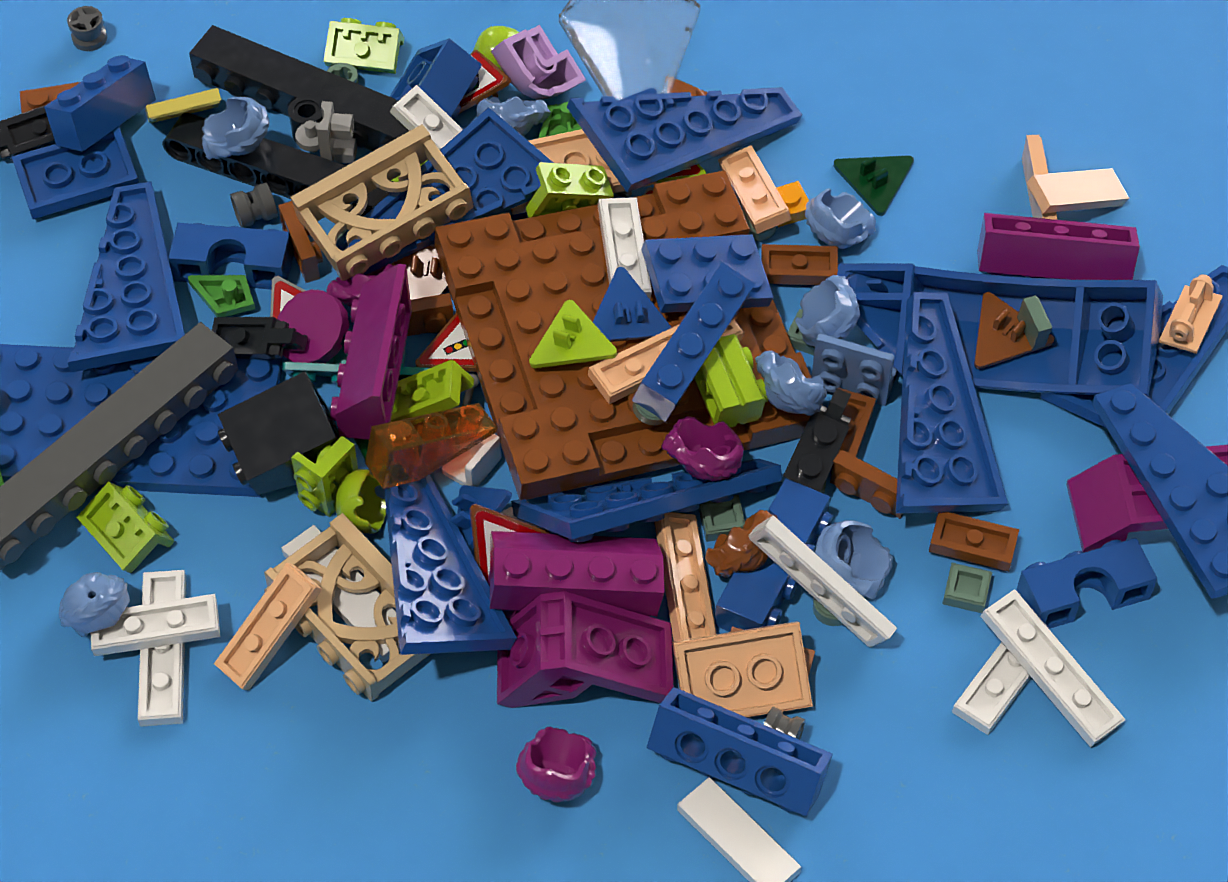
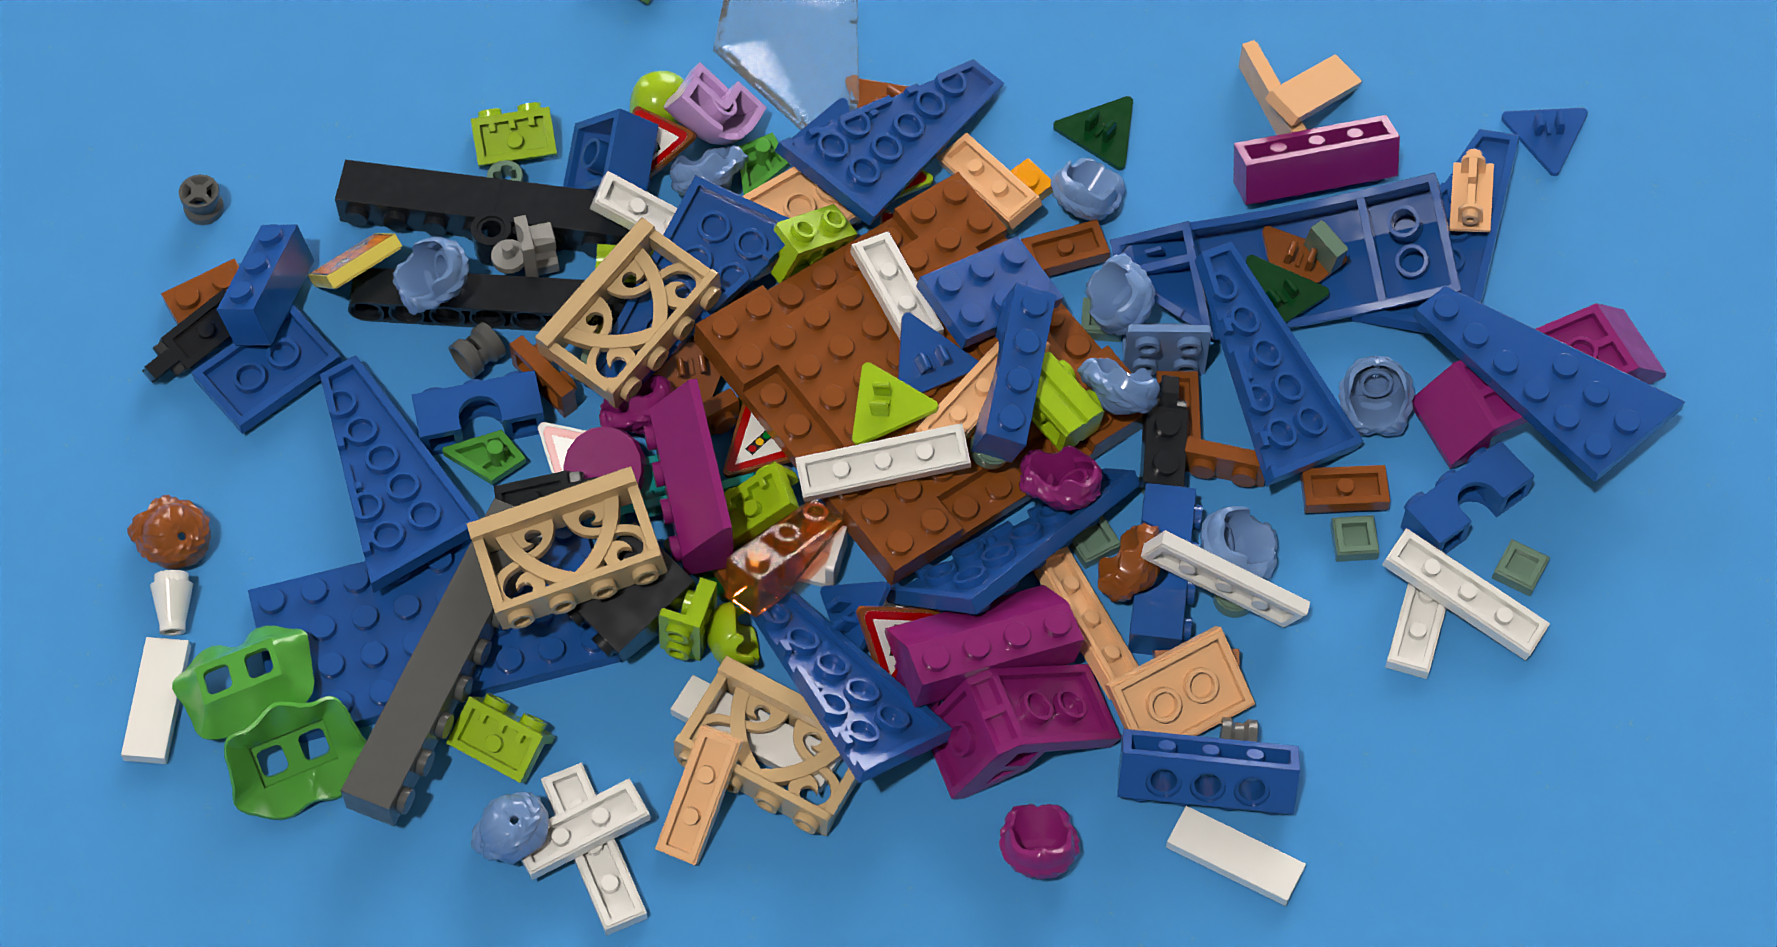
camera: 20 degrees left, 5 degrees up
(255, 406) = (543, 516): none -> tan fence
(548, 387) = (883, 462): none -> white tile
(985, 352) = (1286, 290): none -> dark green piece
(1035, 473) = (1377, 401): none -> medium blue hair
(1117, 661) = (1520, 567): none -> sand green tile

